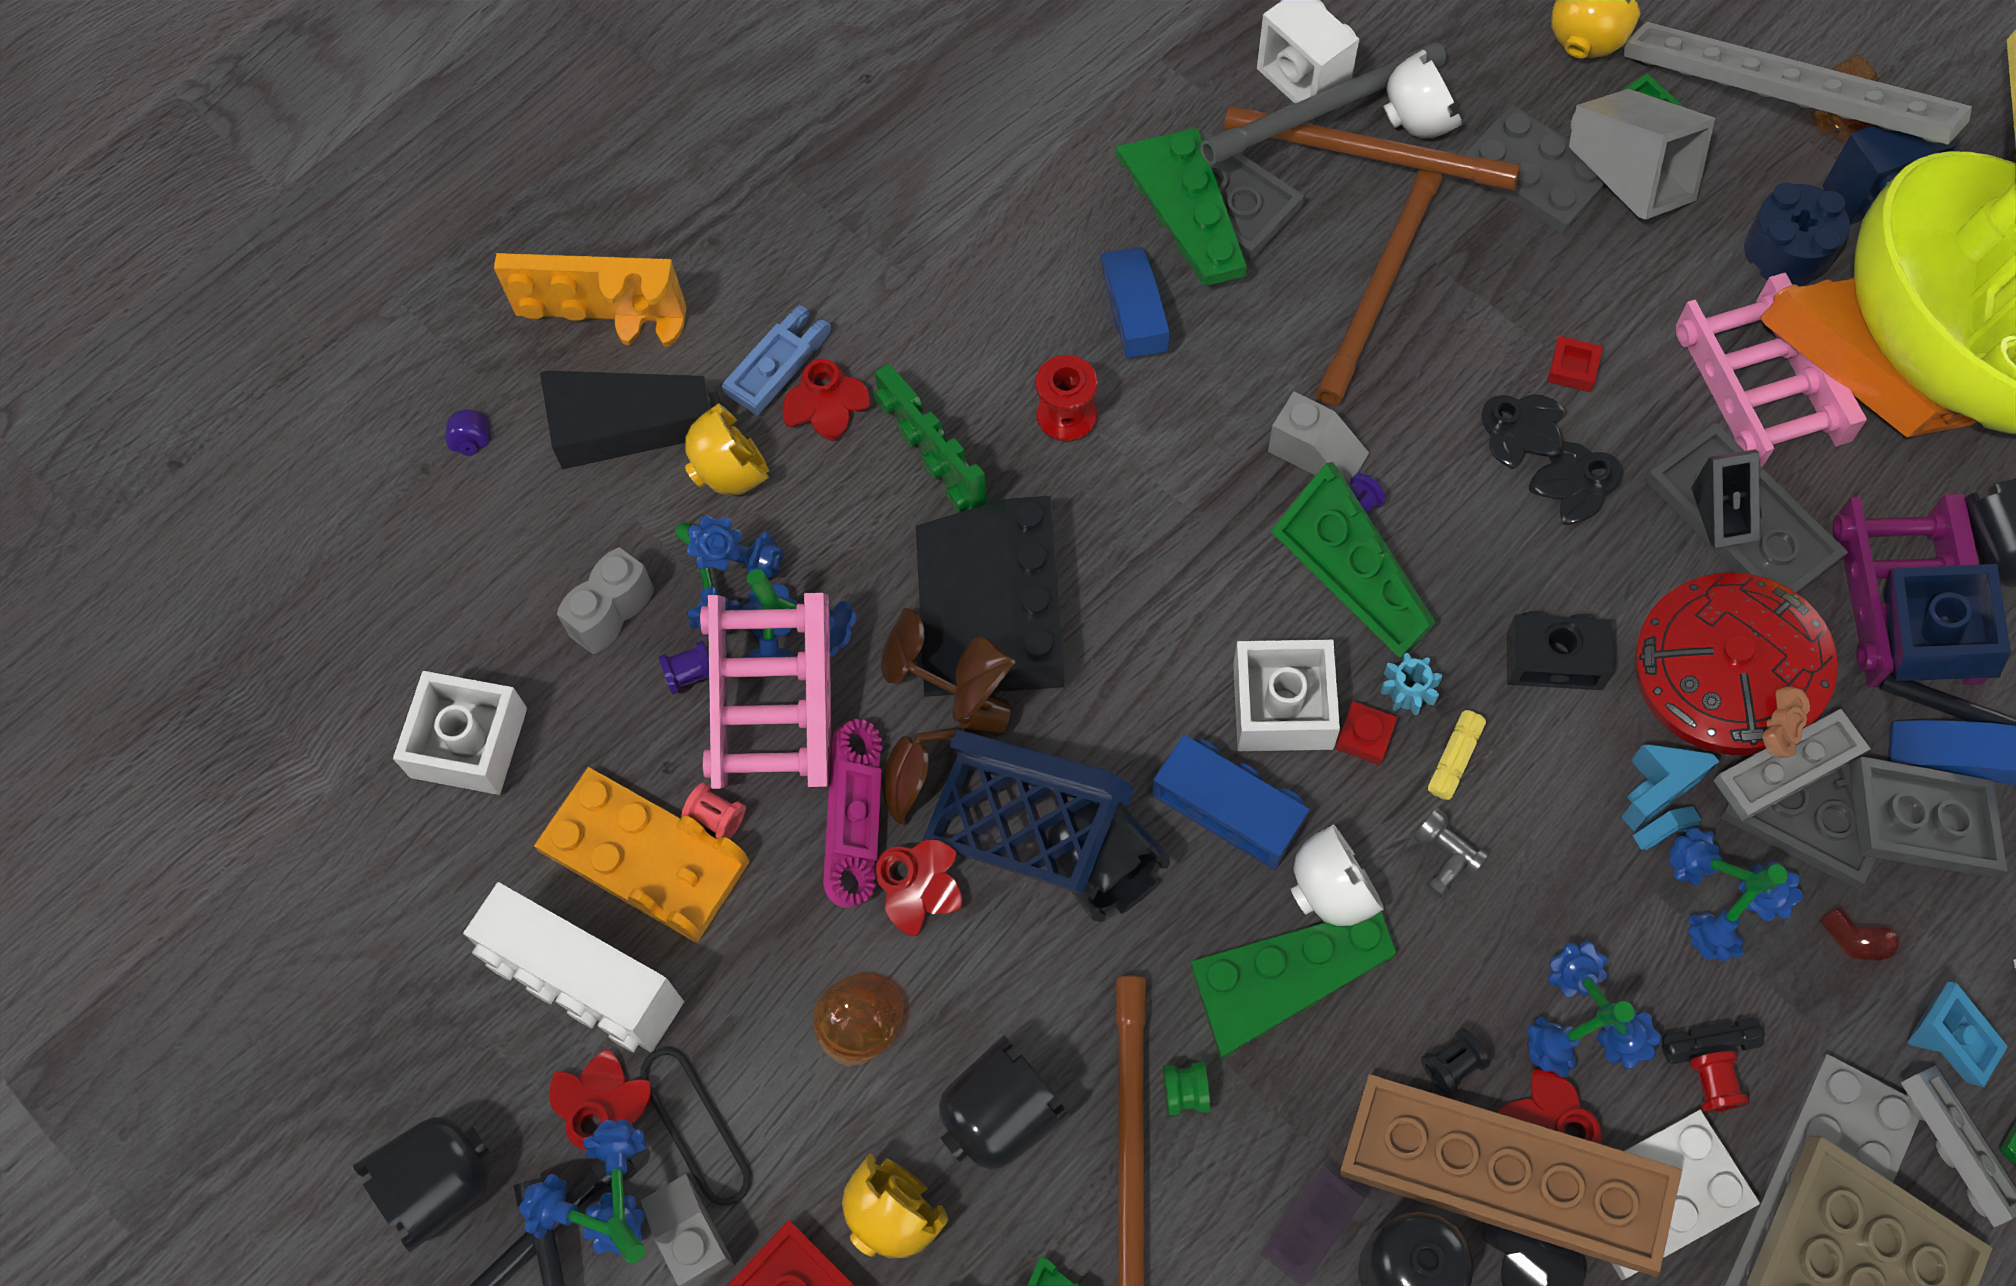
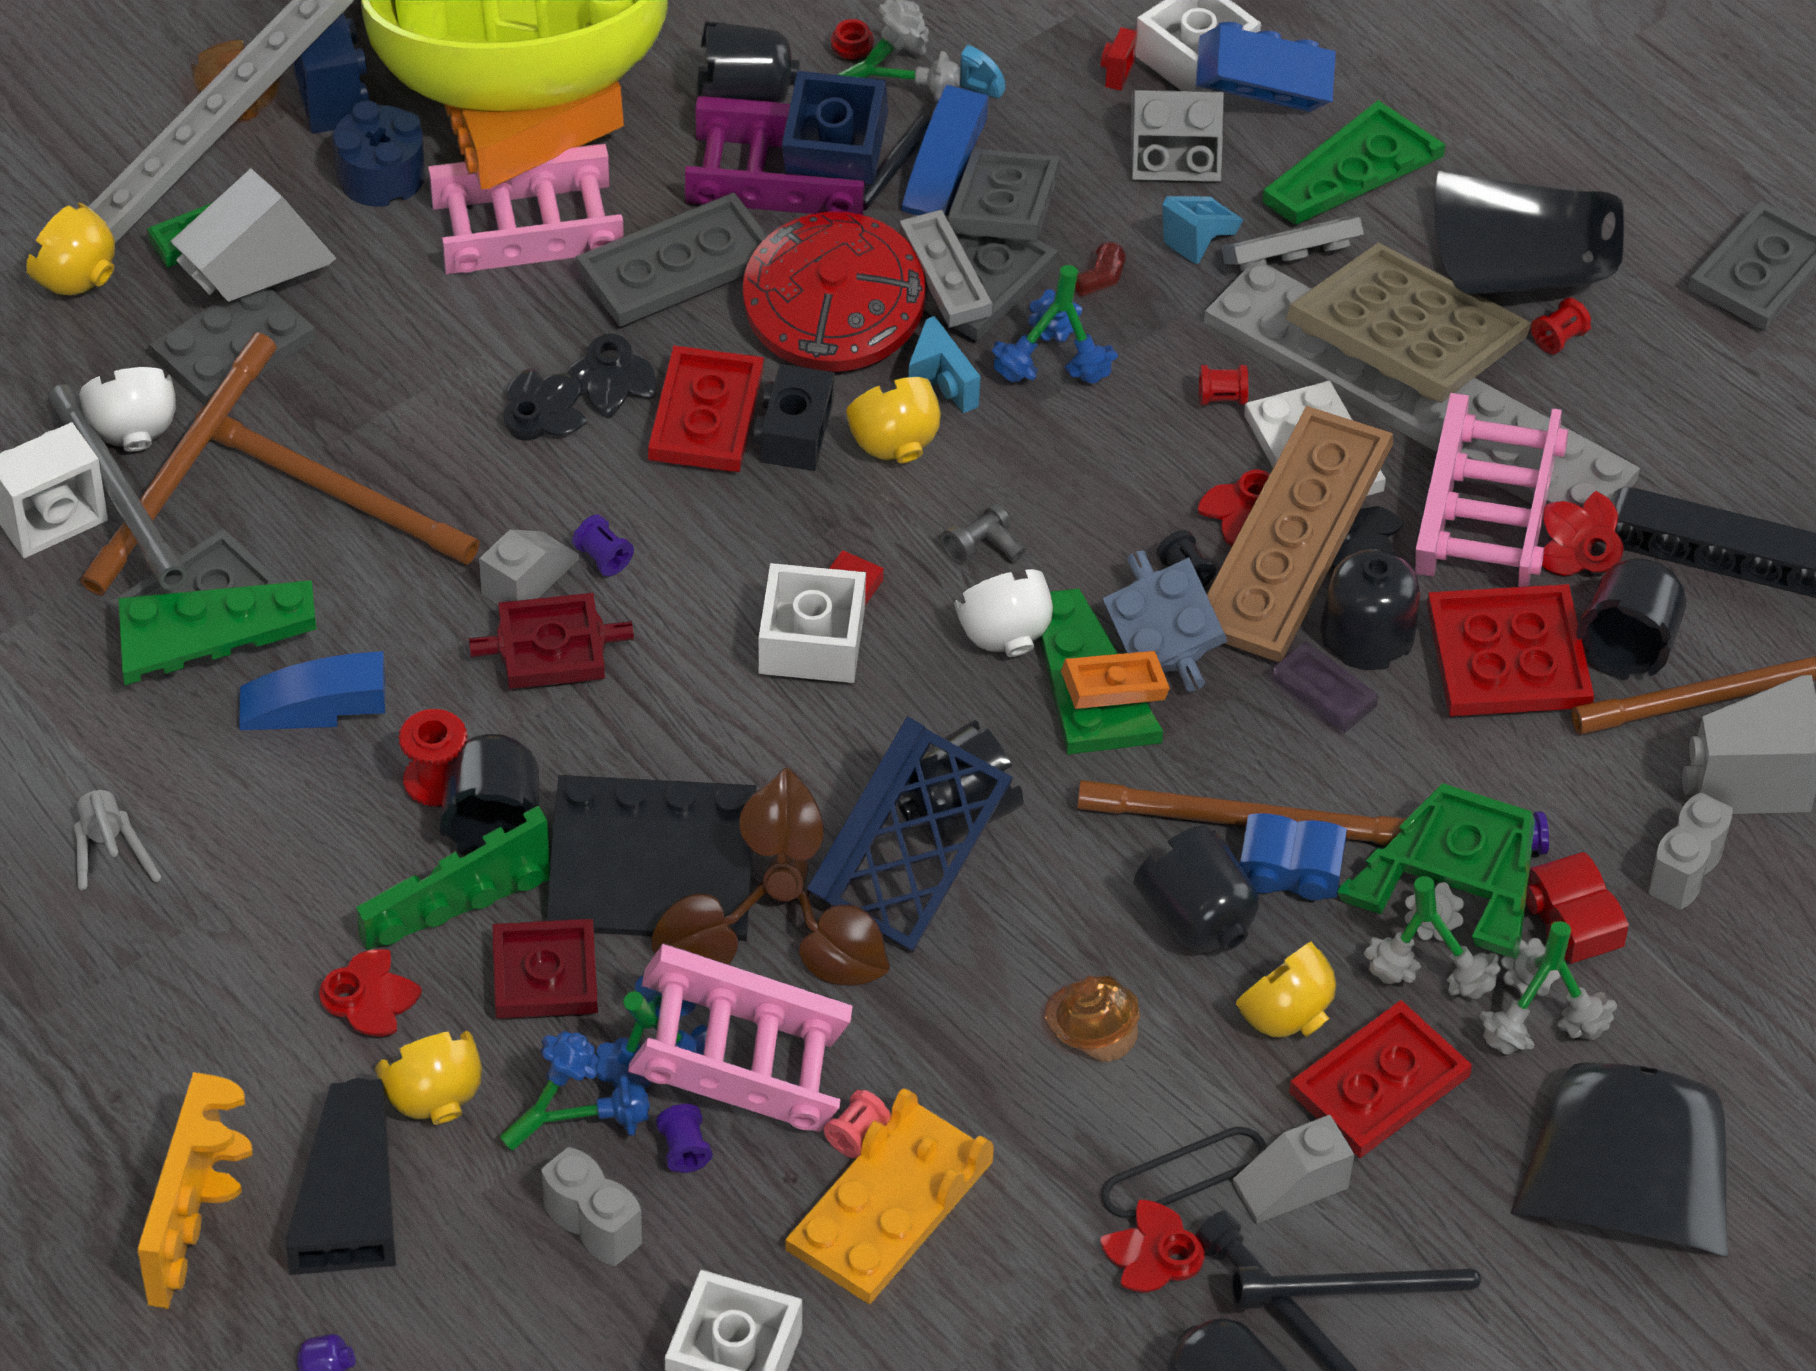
camera: 90 degrees left, 15 degrees down
(575, 967) = (1023, 1238): white brick -> none
(614, 1223) = (1277, 1234): blue plant -> none
(775, 360) = (309, 1033): medium blue hinge -> none
(852, 814) = (894, 1001): dark pink plate -> none
(861, 529) = (544, 968): none -> dark red plate
(925, 887) = (962, 950): red plate -> none
(974, 169) = (102, 822): none -> light grey plant
(1032, 448) = (487, 789): none -> black cylinder
(1074, 1204) = (1293, 855): none -> blue brick
(1186, 1089) = (1192, 759): green wheel -> none
(1230, 801) = (913, 683): blue brick -> none
(1233, 477) = (551, 640): none -> dark red plate
(1262, 995) = (1115, 679): none -> orange plate
(1348, 555) = (663, 555): green wing -> none
(1364, 1044) = (1167, 615): none -> sand blue plate
(1411, 670) = (811, 532): medium azure gear -> none
(1456, 755) = (886, 515): light yellow axle -> none
(1553, 569) = (706, 408): none -> red plate
(1567, 745) = (896, 421): none -> yellow cylinder
(1574, 363) = (480, 351): red plate -> none
(1626, 1035) = (1173, 437): blue plant -> none
(1667, 825) = (989, 382): dark azure tile -> none
(1712, 1039) = (1184, 385): black axle -> none
(1730, 498) = (672, 254): black slope -> none
(1786, 722) = (912, 253): nougat piece -> none

